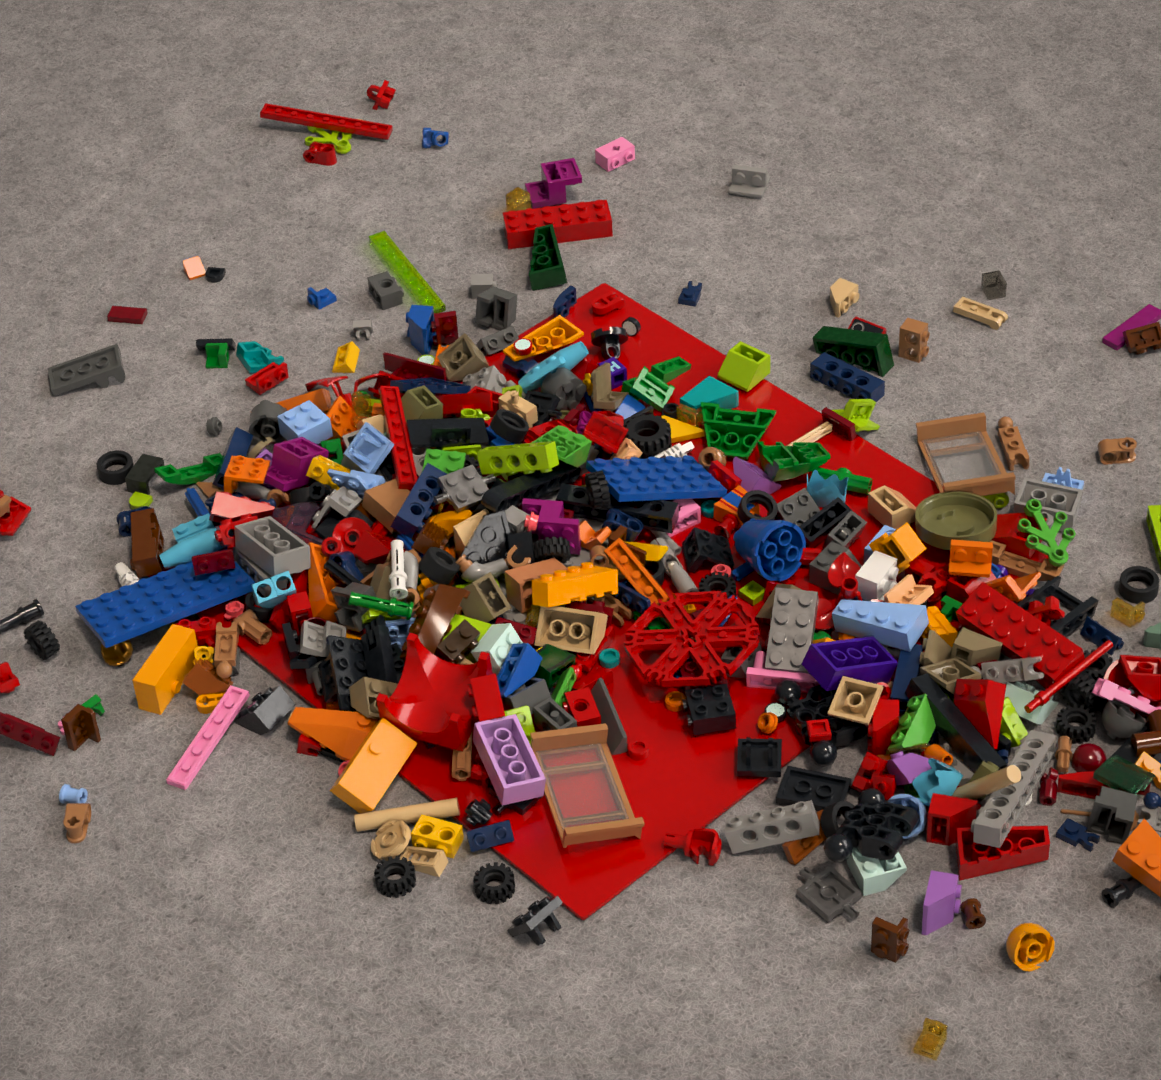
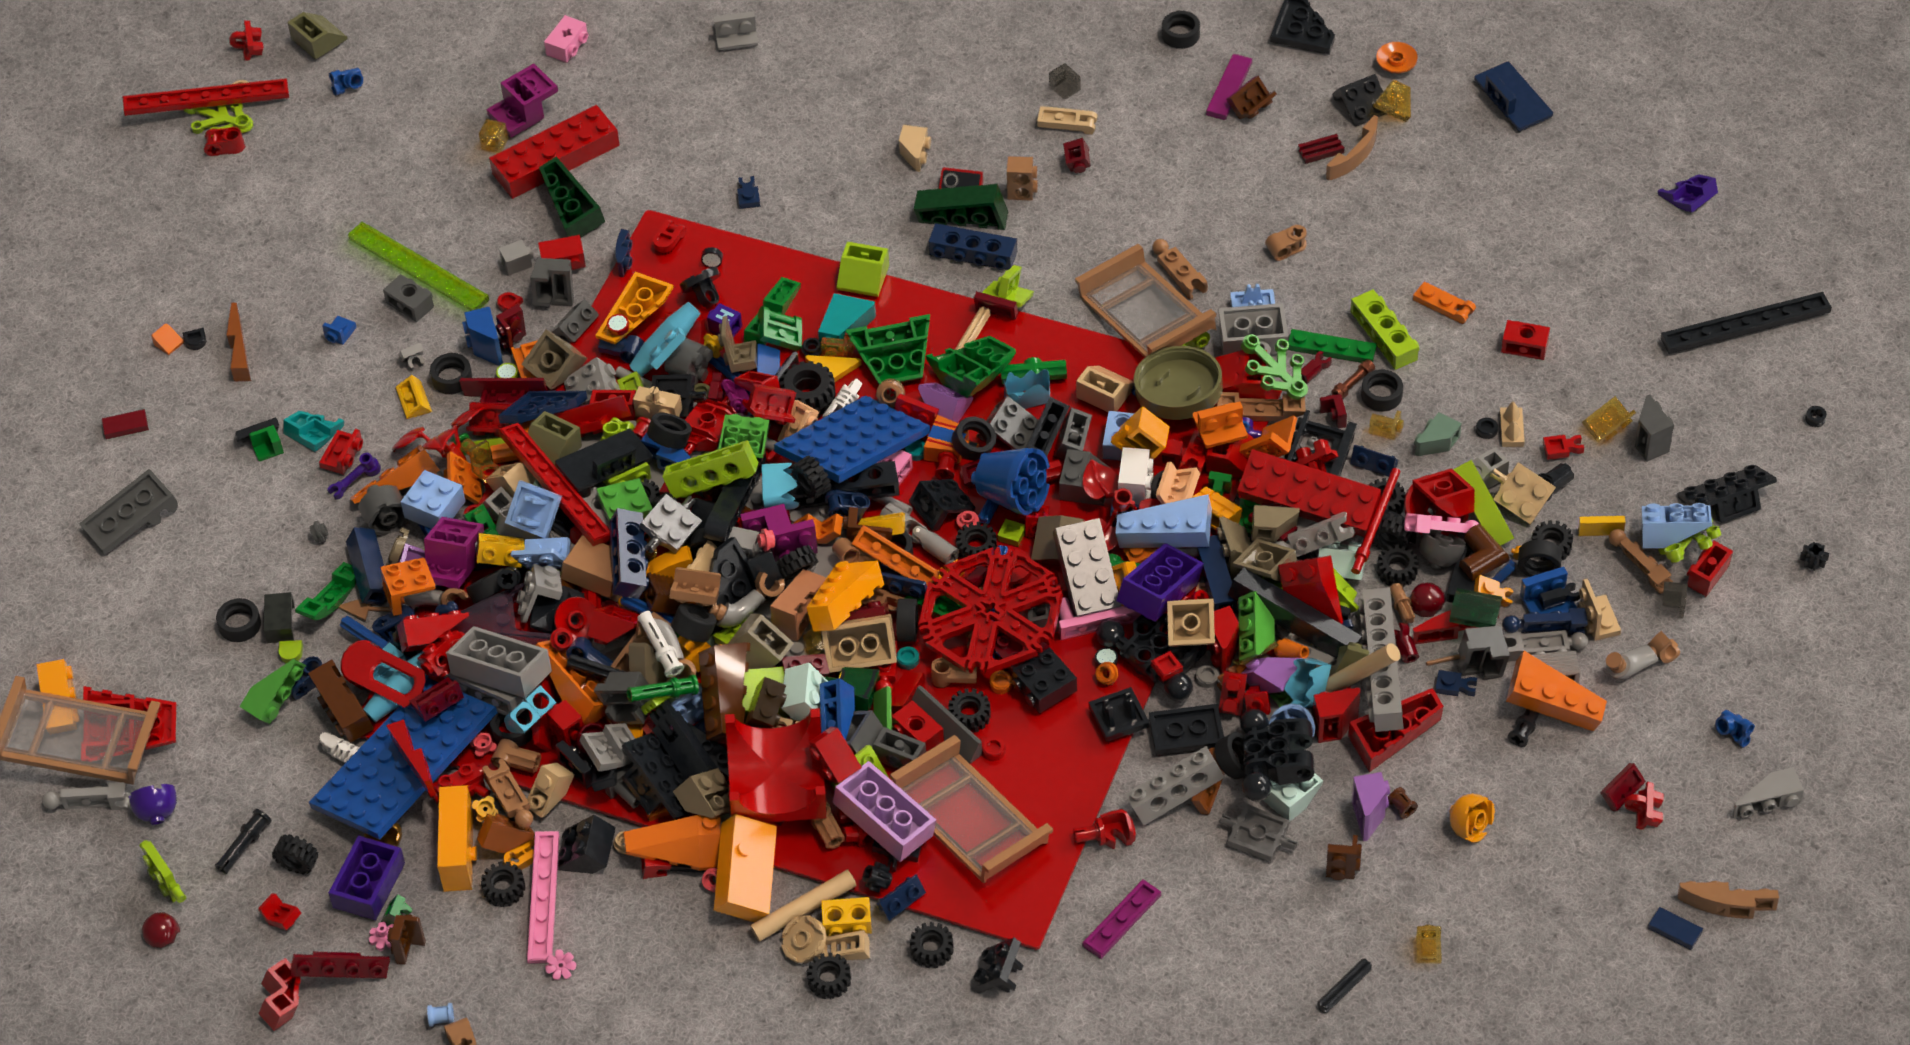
camera: 25 degrees left, 10 degrees up
(83, 675) = (366, 878): none -> dark purple brick
(101, 521) = (269, 694): none -> bright green slope
(165, 600) = (414, 758): none -> red slope
(176, 514) = (362, 659): none -> red piece
(185, 725) = (505, 895): none -> black tyre
(188, 791) = (560, 964): none -> bright pink plant
(243, 278) = (235, 337): none -> dark orange slope
(261, 657) = (549, 788): none -> tan slope
(279, 391) = (369, 466): none -> dark purple brick
(380, 341) = (446, 361): none -> black tyre
(431, 102) = (315, 34): none -> olive slope
(453, 537) = (695, 586): none -> medium nougat bracket
(462, 315) = (508, 300): none -> red tile
(526, 291) = (564, 248): none -> red brick
(567, 488) = (776, 484): none -> medium azure piece
(618, 624) = (907, 620): none -> black tyre
(632, 679) = (945, 673): none -> medium nougat piece
(639, 704) = (971, 699): none -> black tyre
(669, 921) = (1121, 919): none -> magenta tile
(835, 1046) = (1344, 985): none -> black axle
(855, 755) = (1207, 676): none -> light grey tile
(970, 343) = (1075, 158): none -> dark red brick
(1087, 583) = (1334, 405): none -> dark red bracket
(1088, 550) = (1314, 367): none -> dark red bar
(1102, 574) = (1363, 369): none -> copper bar
(1114, 283) = (1180, 41): none -> black tyre
(1114, 540) = (1331, 346): none -> green plate

